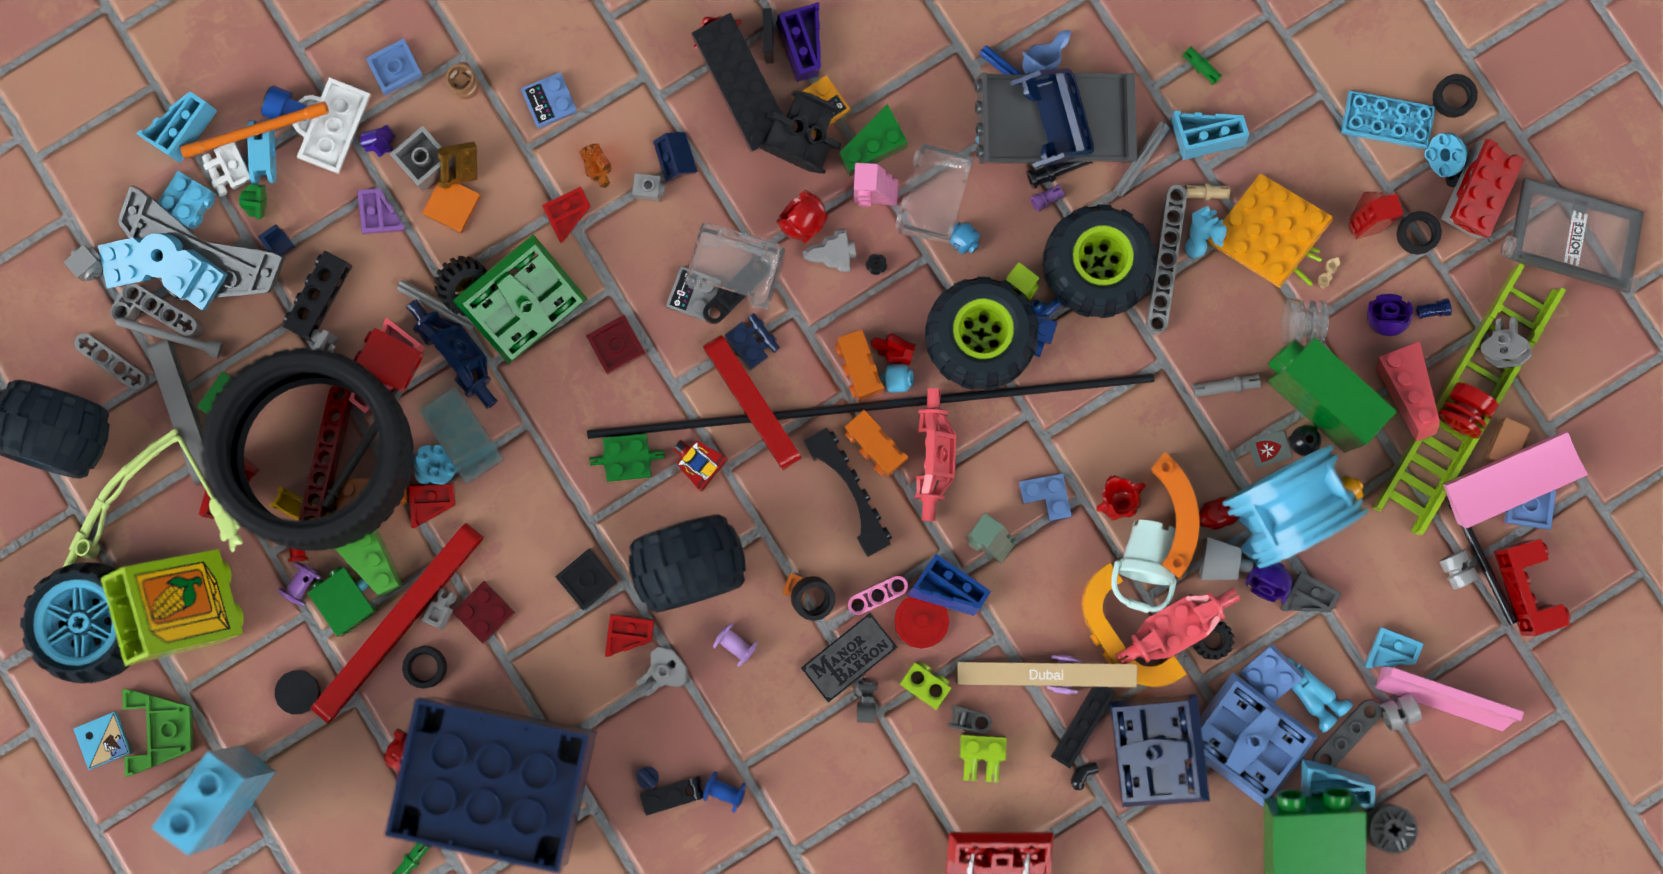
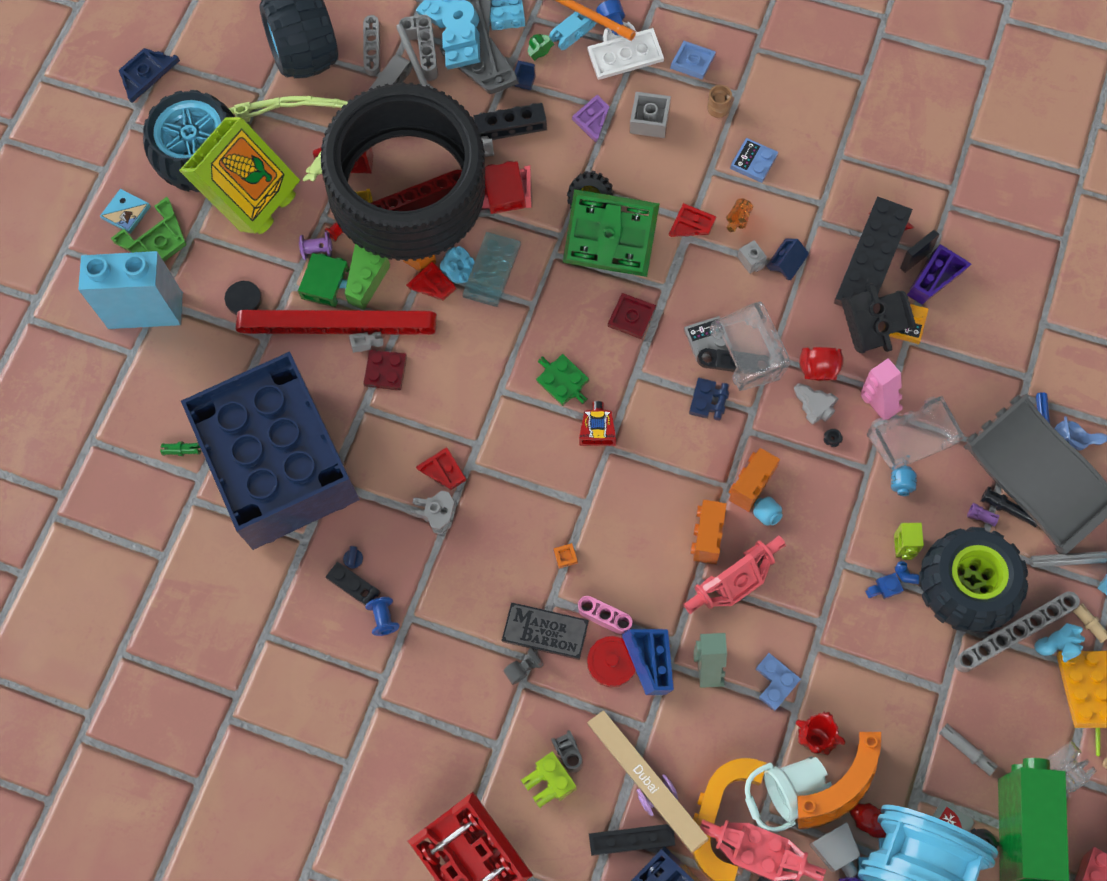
camera: 50 degrees right, 15 degrees down
(233, 165) = (552, 17): white plate -> none
(377, 140) = (638, 83): dark purple piece -> none
(407, 667) = (312, 349): black tyre -> none
(433, 303) = (563, 189): light grey axle -> none
(452, 206) = (636, 154): orange tile -> none
(457, 349) = (544, 226): dark blue plate -> none
(464, 162) = (668, 138): pearl gold plate -> none
(586, 579) = (459, 416): black tile -> none
(687, 563) = (521, 461): black wheel -> none
(735, 644) = (491, 544): lavender hose -> none
(752, 402) = (667, 428): red beam -> none
(824, 448) = (643, 578): black arch -> none
(826, 606) = (561, 585): black tyre -> none
(875, 142) = (918, 372): green wedge -> none
(877, 405) = (745, 521): black piece -> none
(894, 348) = (786, 494): red rock -> none
(922, 690) = (563, 699): lime brick -> none
(1002, 307) = (843, 562): black wheel -> none
(1060, 113) = (1050, 470): dark blue windscreen -> none
(1081, 773) = (592, 868): black arm -> none

